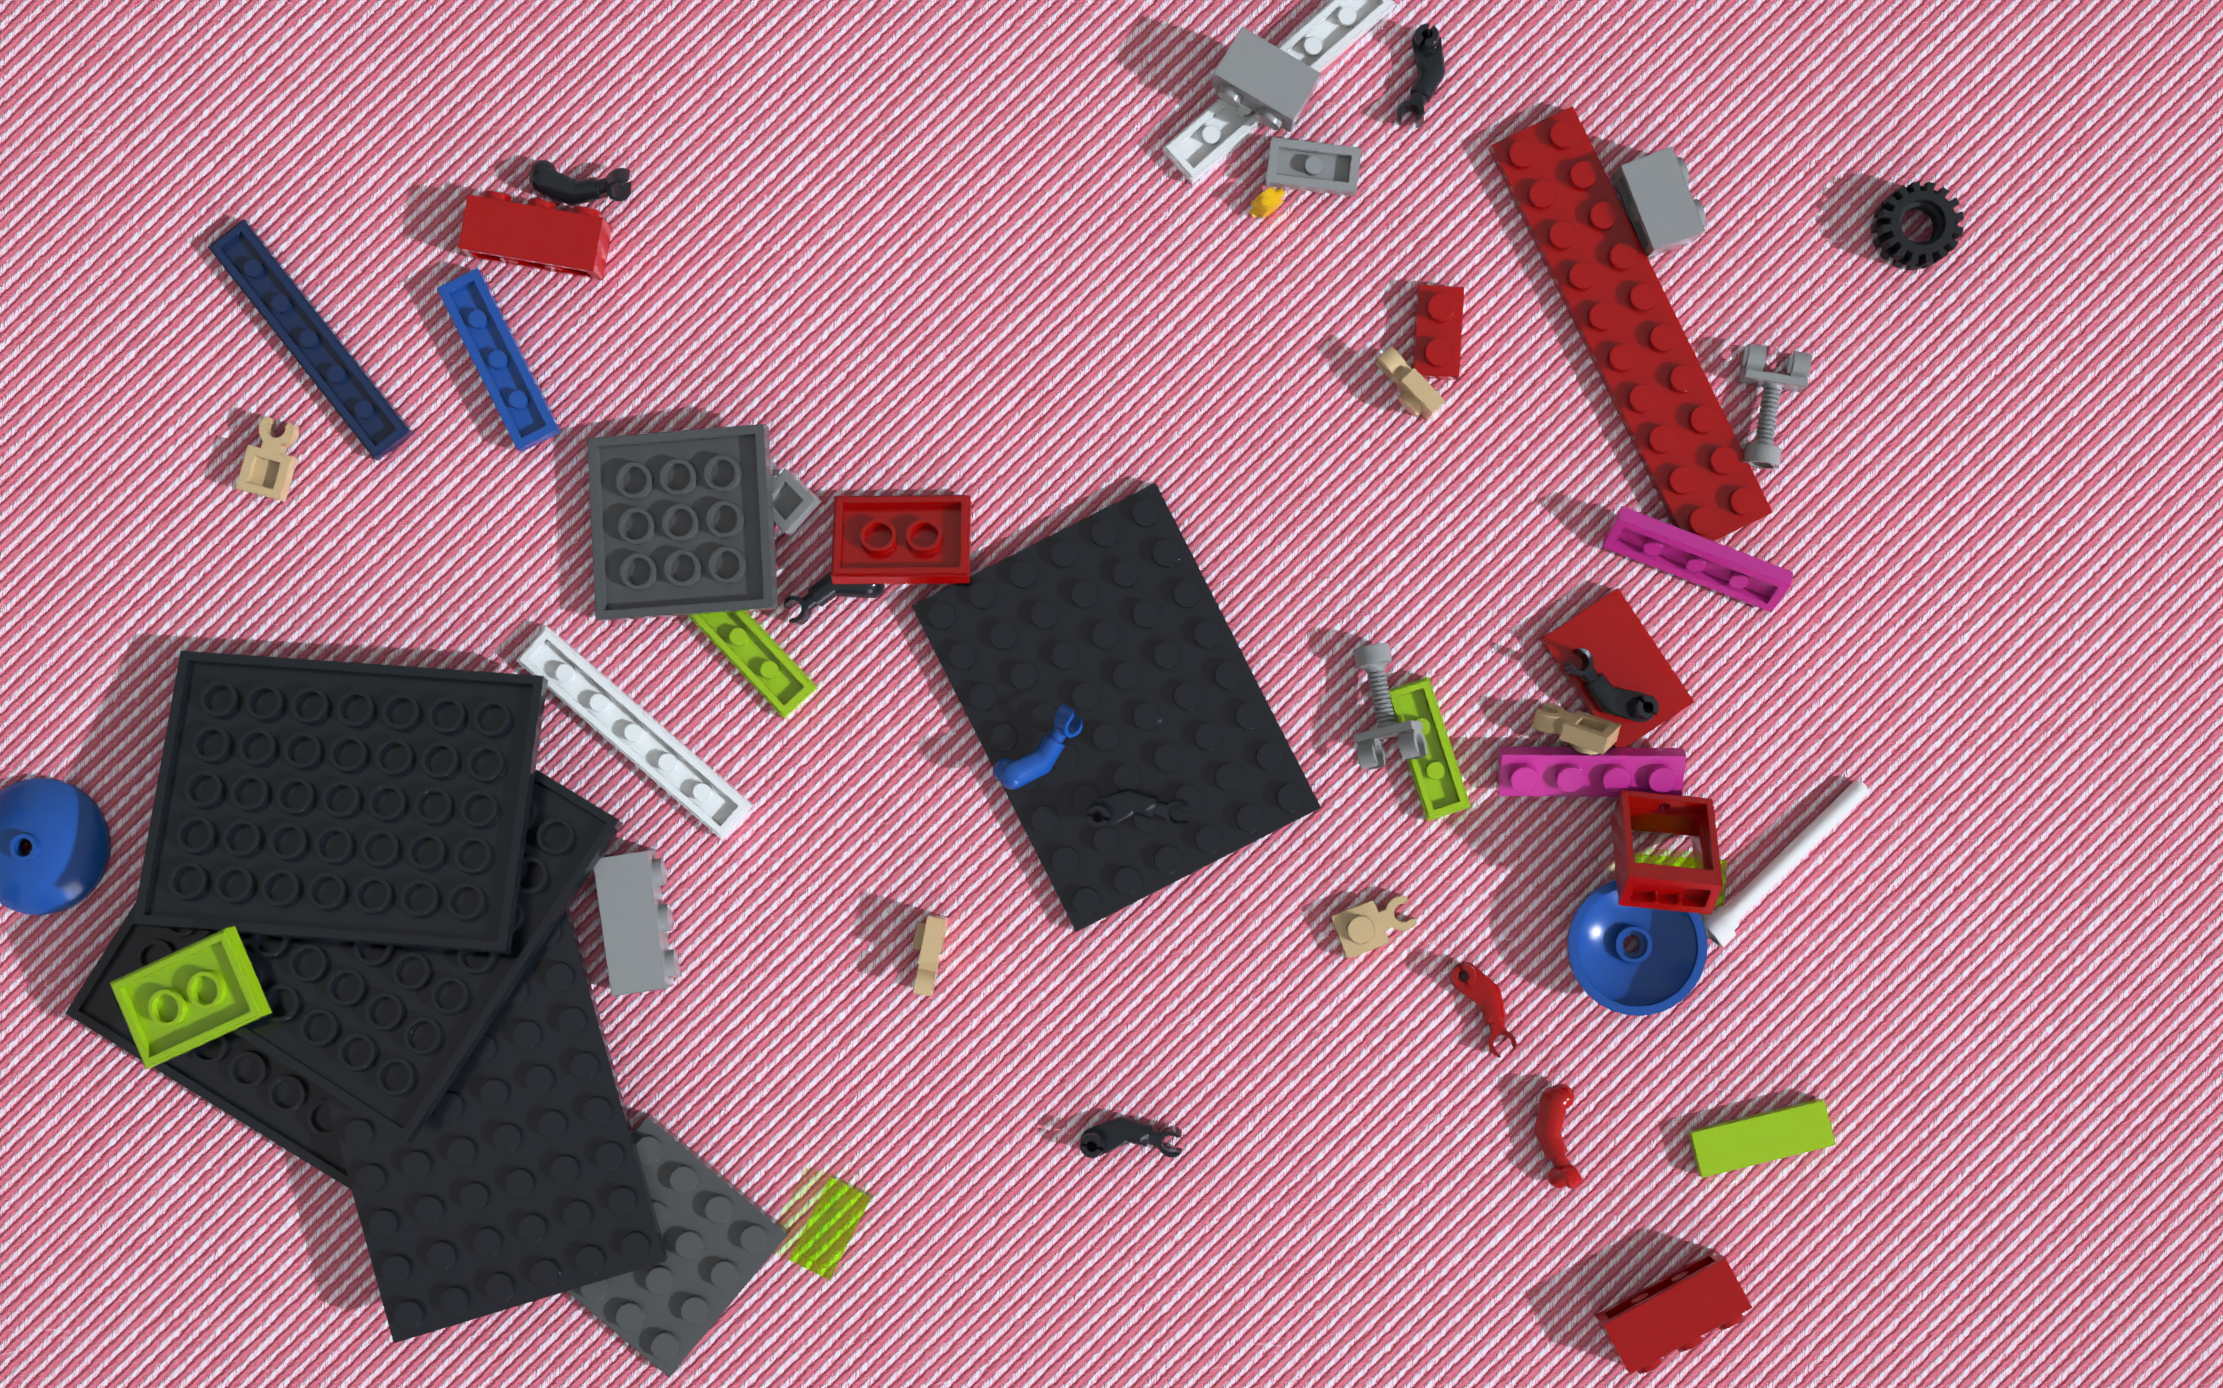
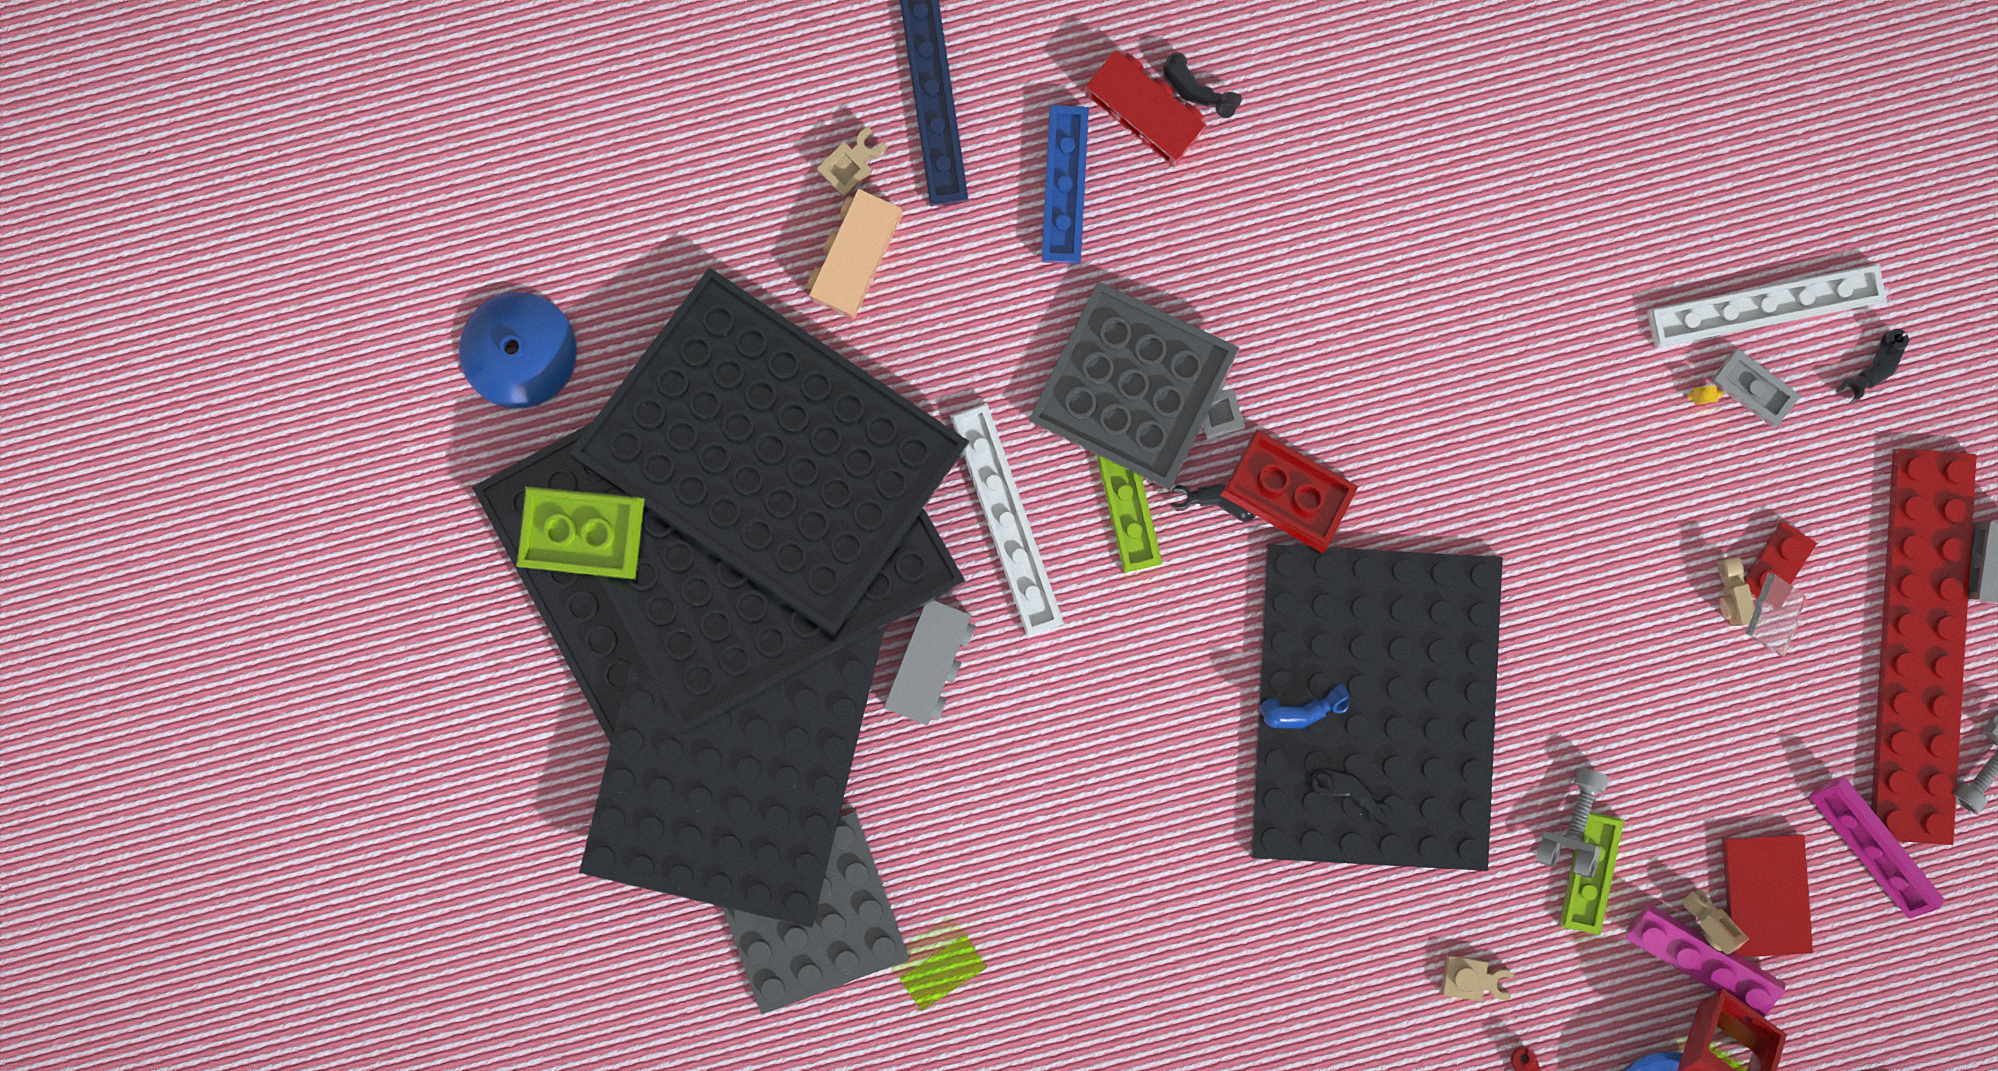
camera: 25 degrees right, 0 degrees up
(324, 552) = (854, 253): none -> light nougat brick
(929, 941) = (1139, 803): tan plate -> none
(1124, 1130) = (1202, 1026): black arm -> none
(1264, 80) = (1759, 305): light grey brick -> none
(1461, 382) = (1776, 614): none -> clear piece
(1610, 699) = (1751, 913): black arm -> none

